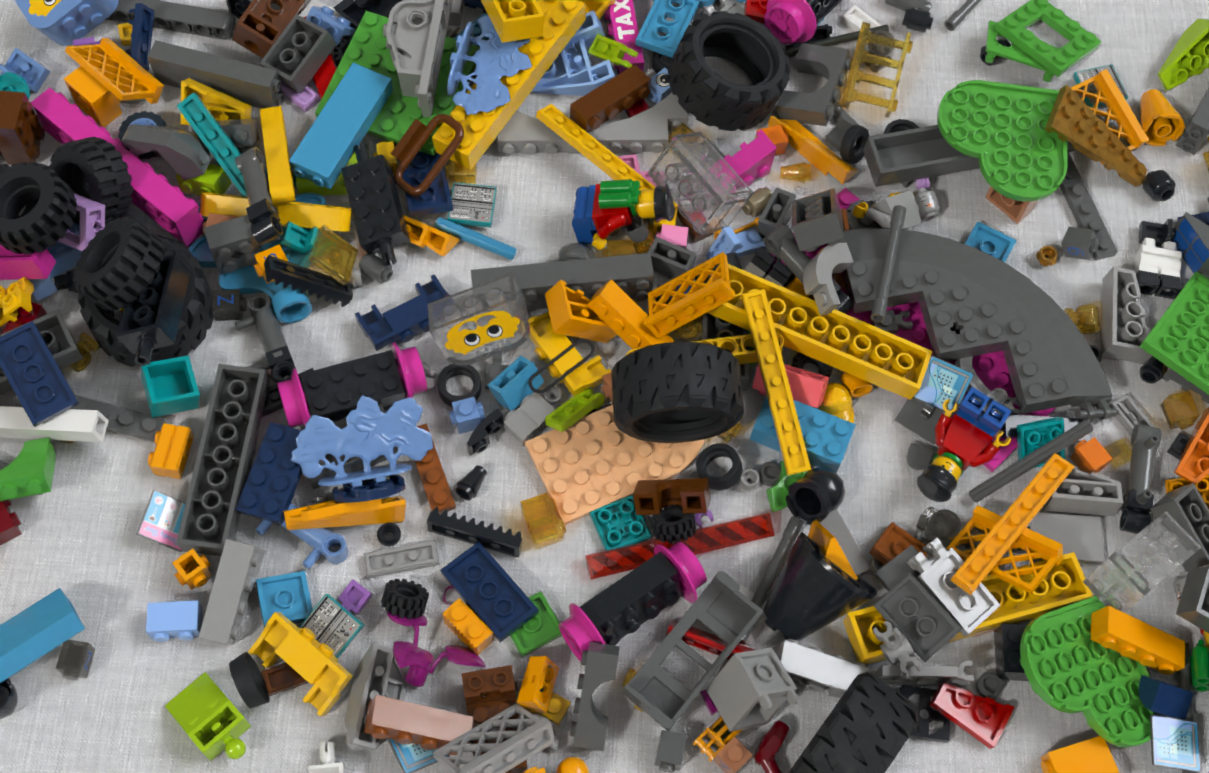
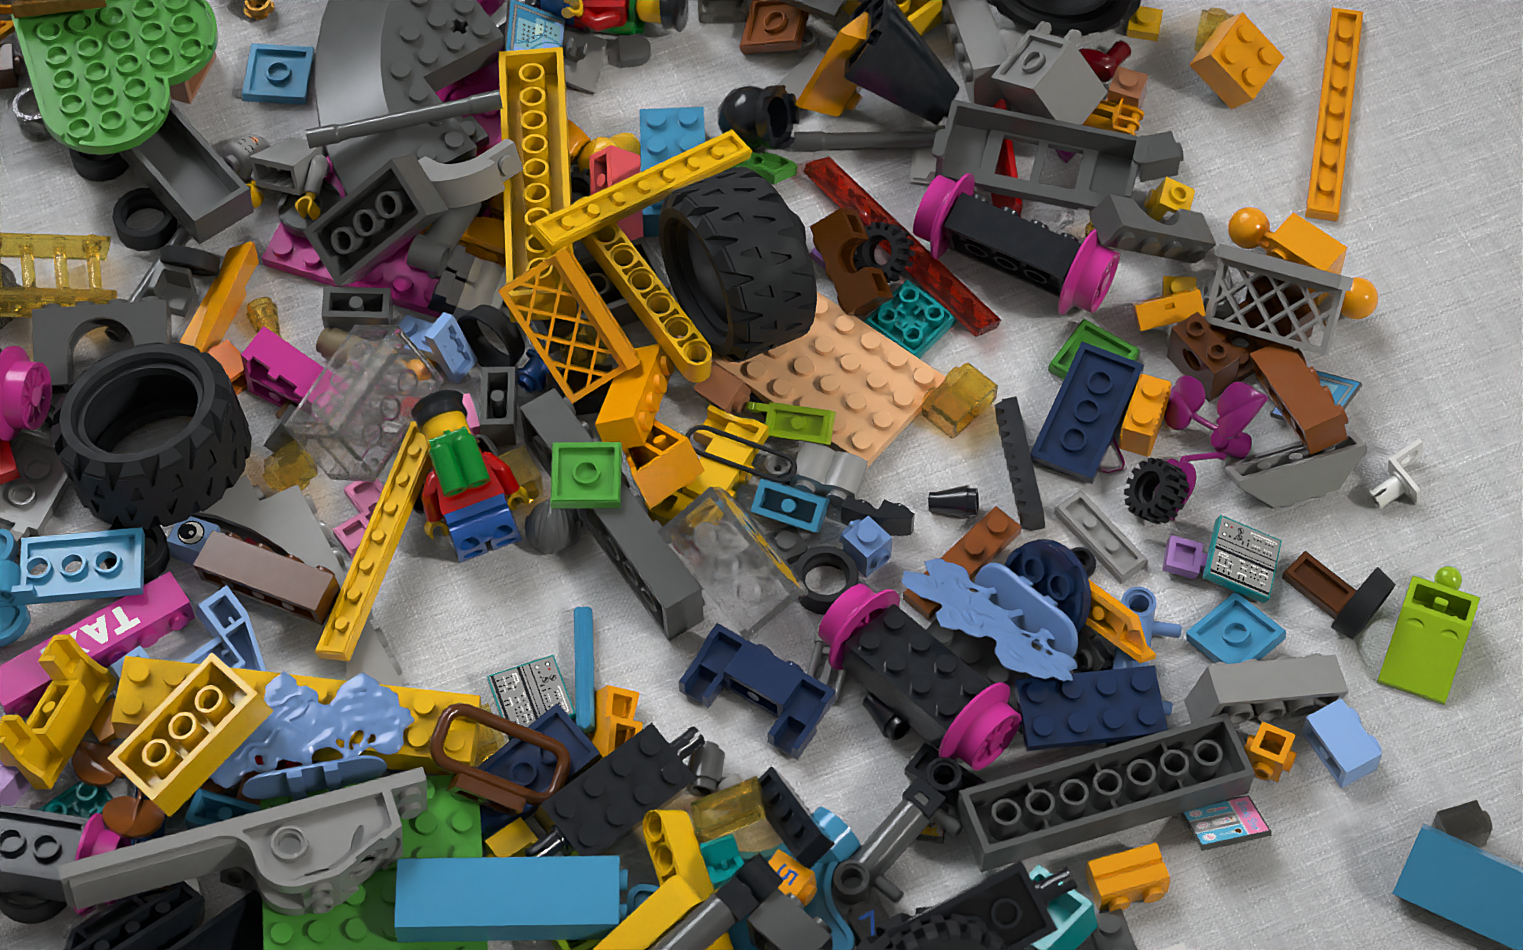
camera: 110 degrees left, 5 degrees down
(306, 656) = (1296, 559): yellow bracket -> none
(581, 264) = (586, 475): none -> bright green tile
(611, 50) = (174, 616): lime hinge -> none
(625, 734) = (1168, 197): none -> yellow bracket

